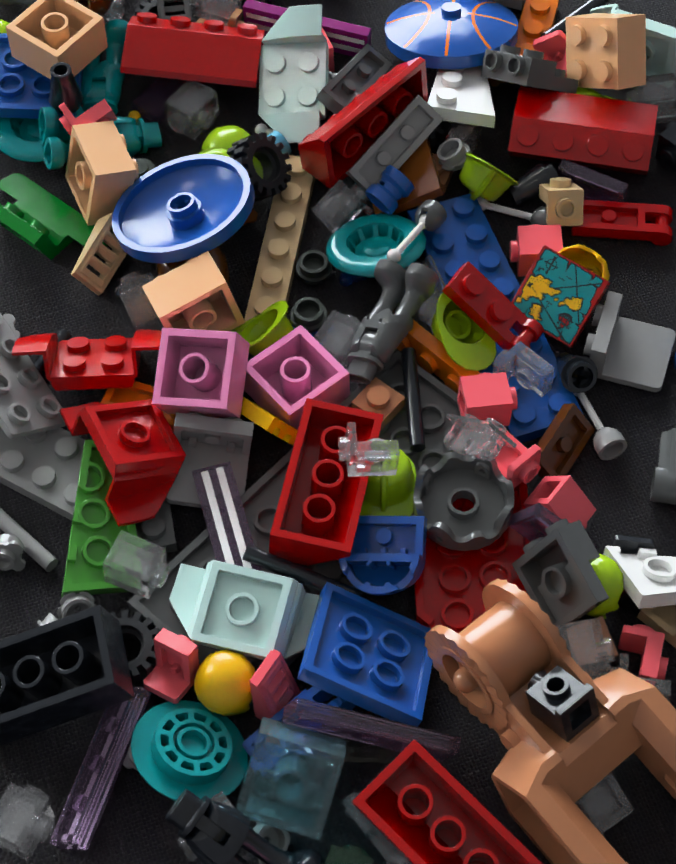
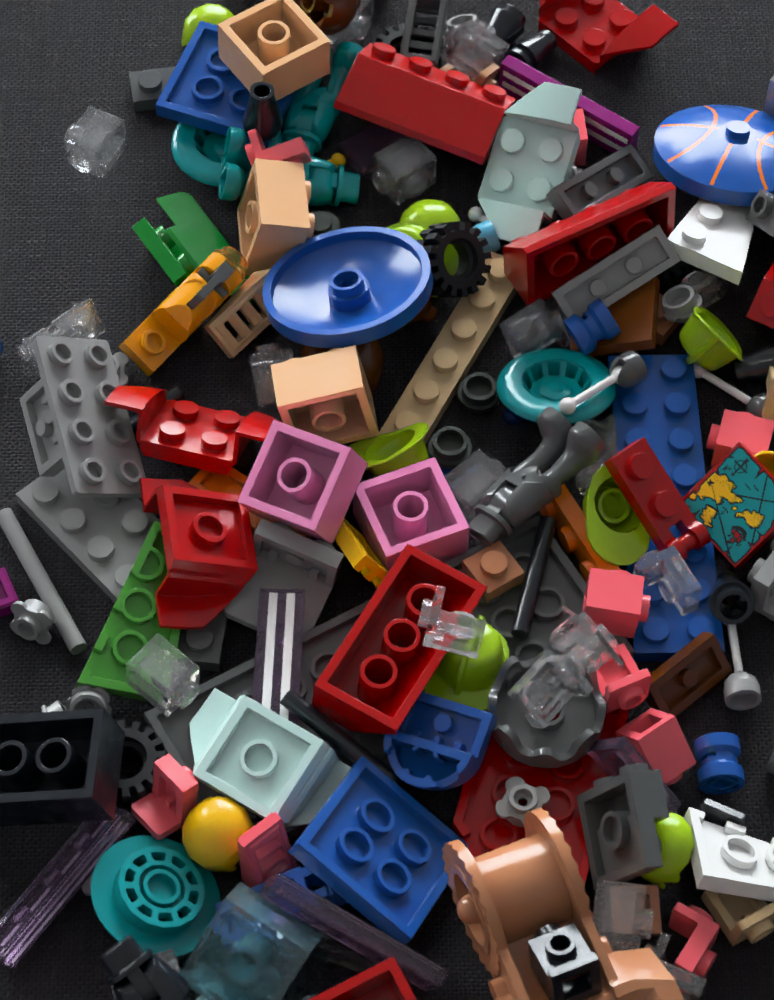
camera: 15 degrees right, 0 degrees up
(50, 264) = (185, 309): none -> light orange plate
(461, 590) = (510, 809): none -> light grey plate
(462, 481) = (548, 688): none -> clear bracket
(612, 504) = (719, 763): none -> blue wheel

